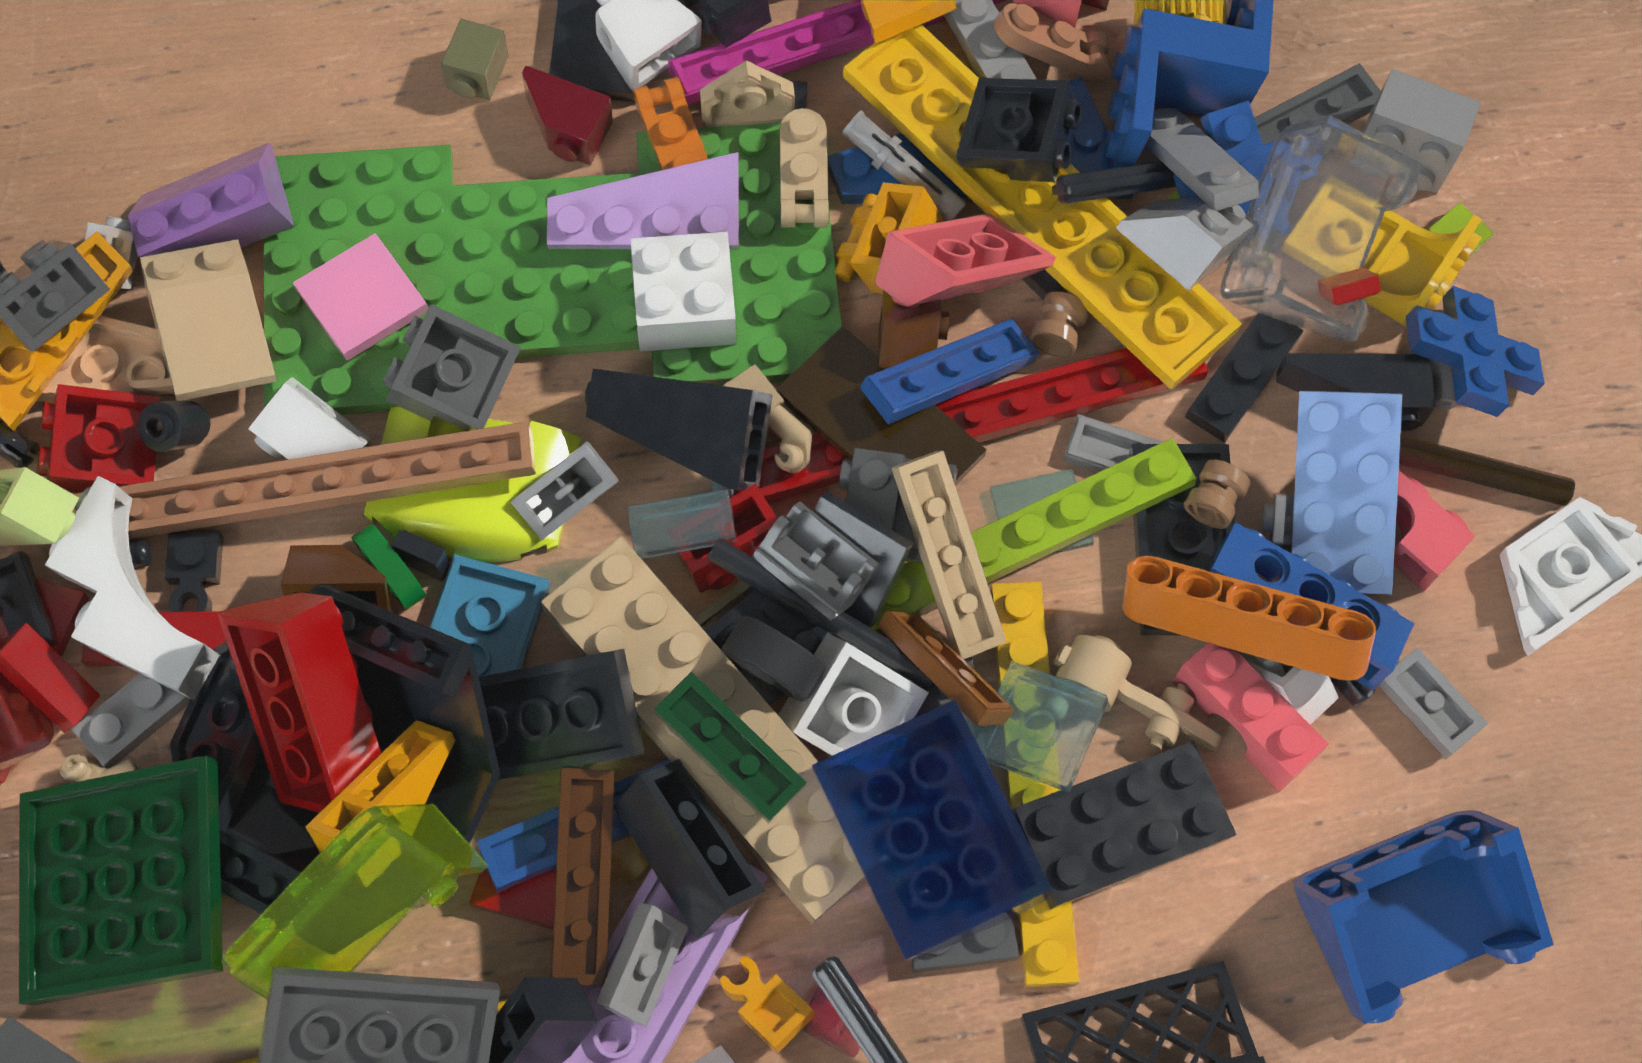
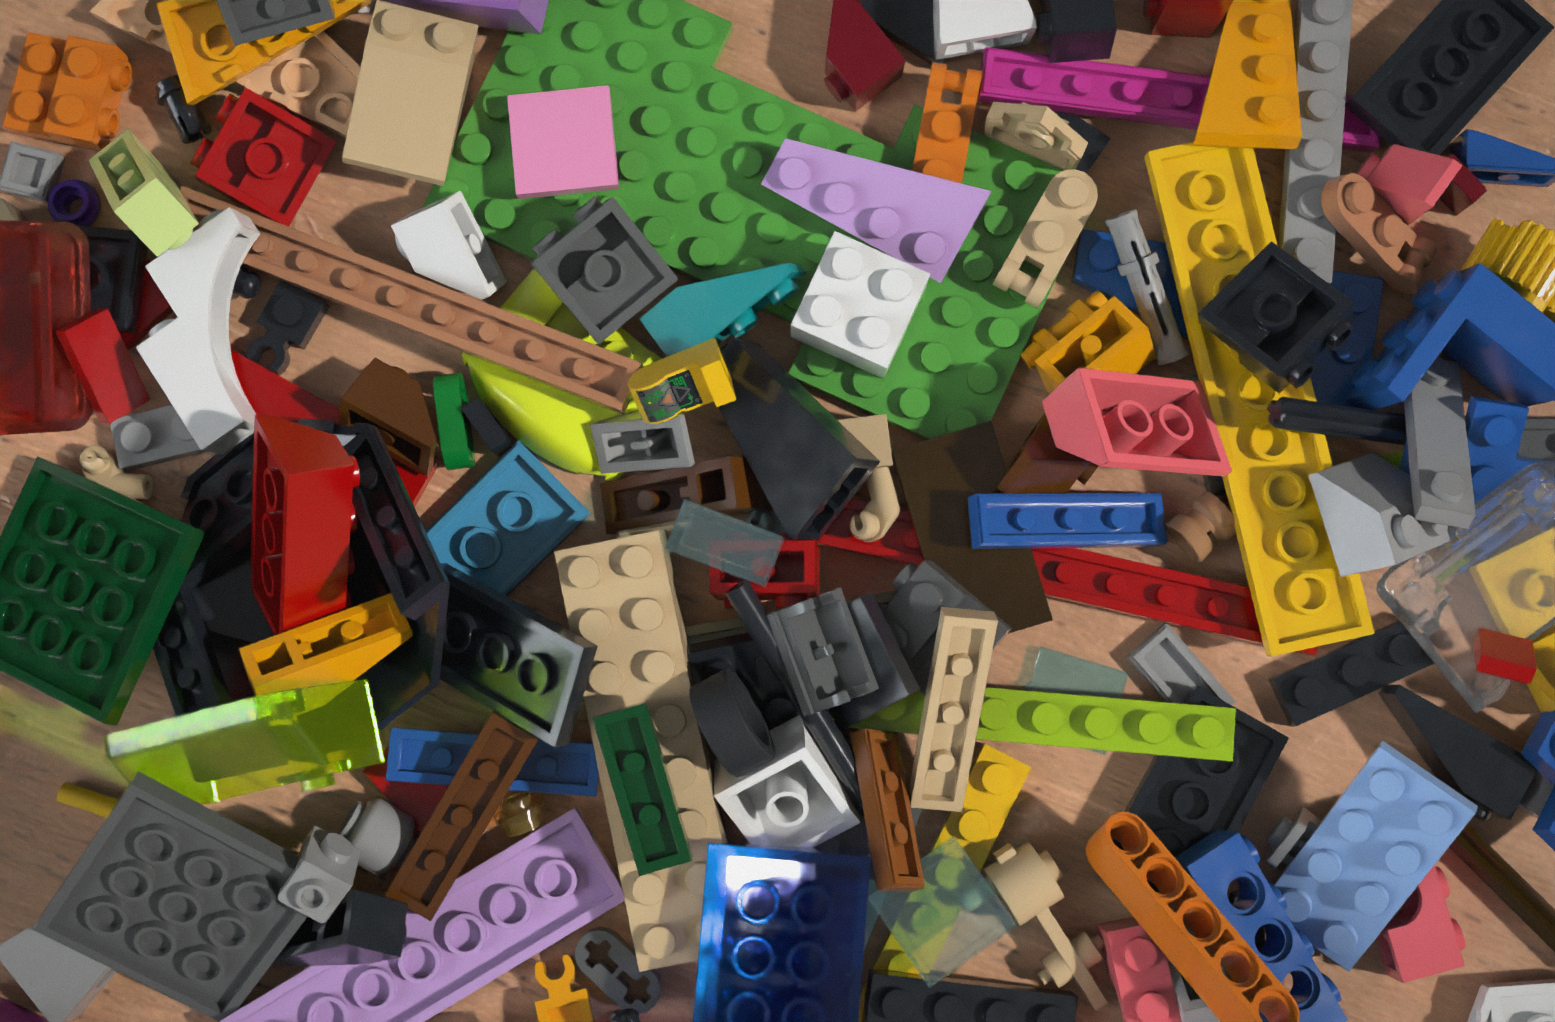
camera: 40 degrees right, 15 degrees up
(173, 425) = (330, 182): black brick -> none
(487, 986) = (321, 875): none -> light grey bracket
(513, 947) = (380, 833): none -> light grey head
(560, 362) = (718, 306): none -> teal slope
(573, 416) = (682, 383): none -> yellow leg
(642, 964) = (470, 922): light grey plate -> none
(648, 481) = (657, 497): none -> reddish brown slope
(688, 848) = (563, 849): black brick -> none
(796, 932) = (609, 979): none -> dark grey beam
(1217, 494) = (1243, 787): medium nougat wheel -> none

